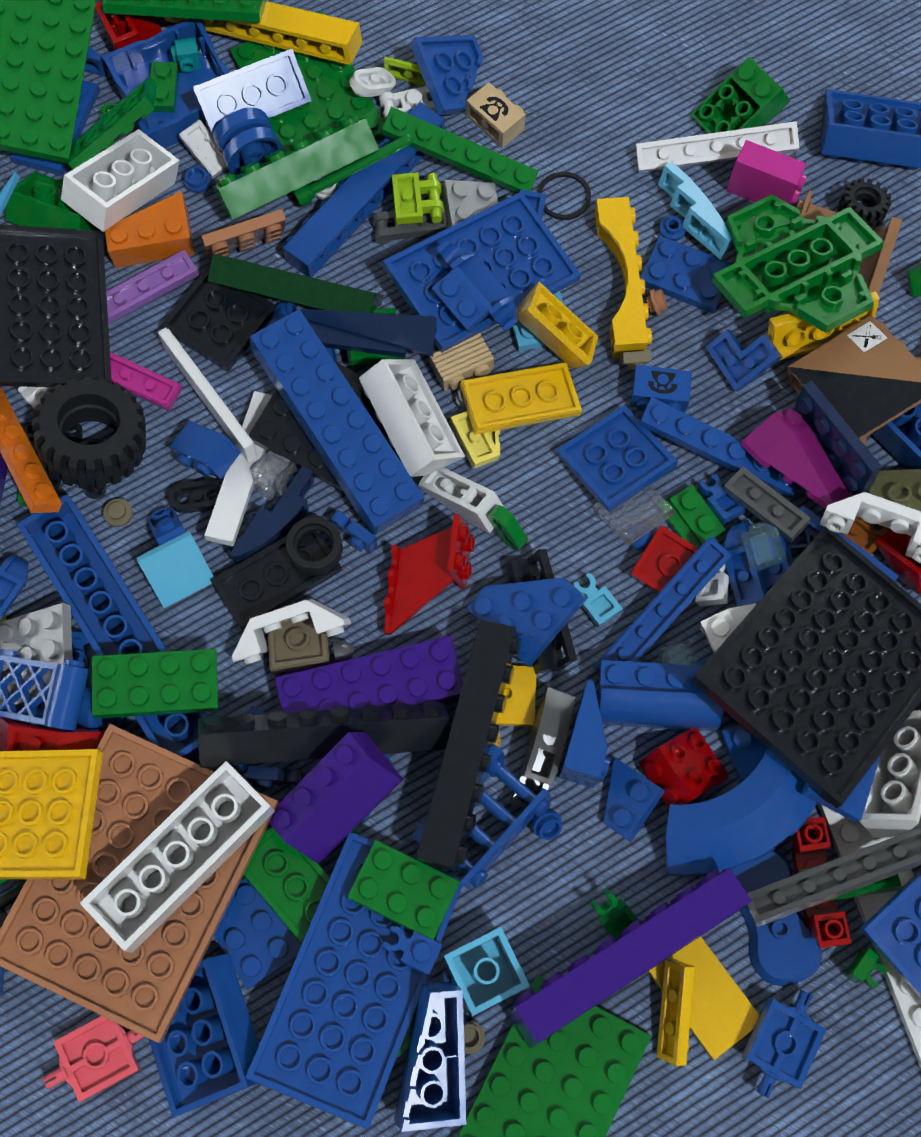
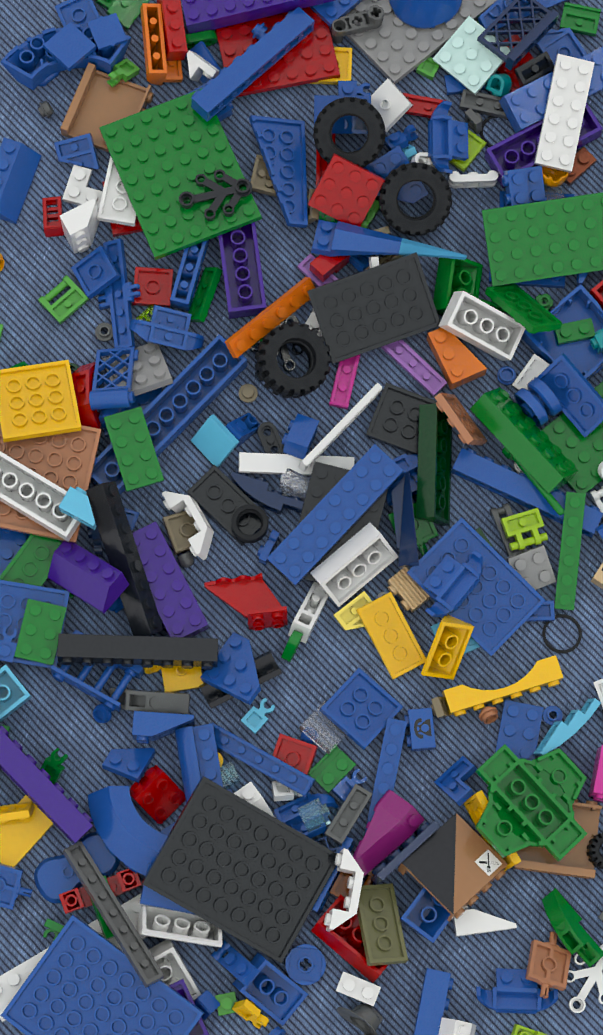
camera: 75 degrees right, 5 degrees up
(230, 771) = (77, 506): none -> medium azure slope

